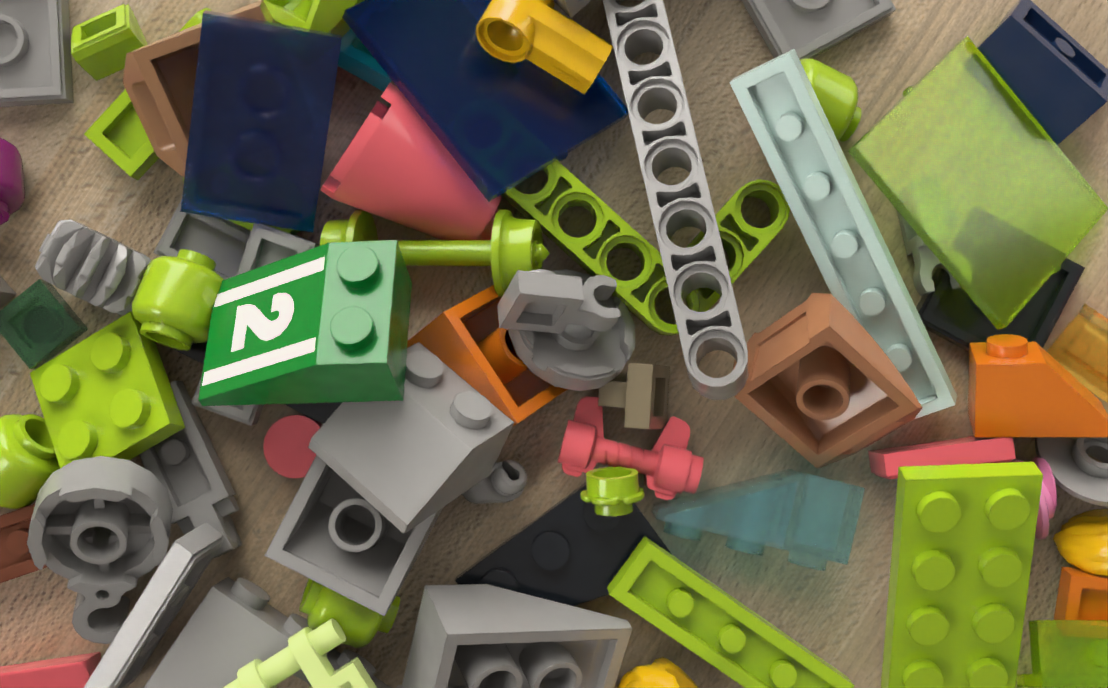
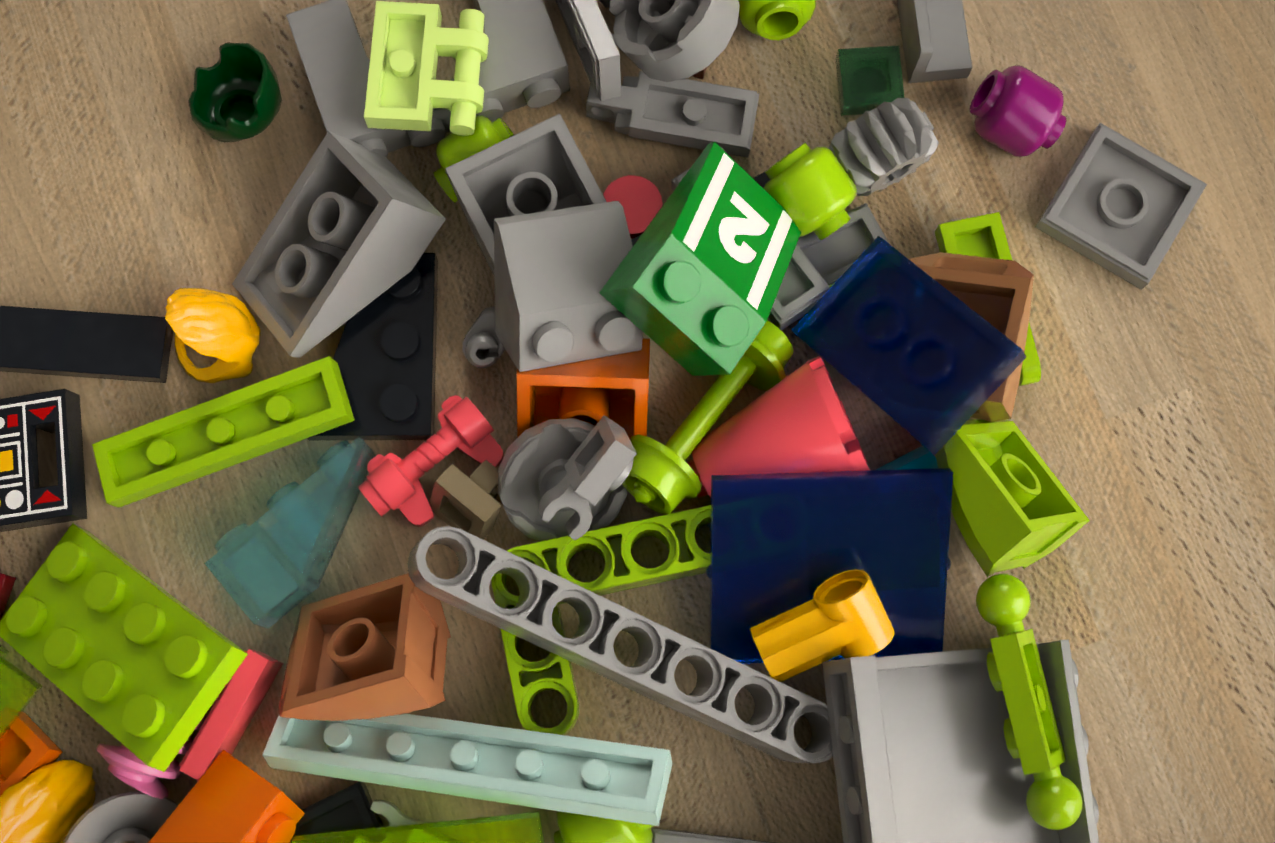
camera: 130 degrees right, 10 degrees down
(105, 40) = (1065, 285): lime slope -> none
(107, 395) = (772, 88): lime plate -> none
(612, 490) = (409, 418): lime plate -> none

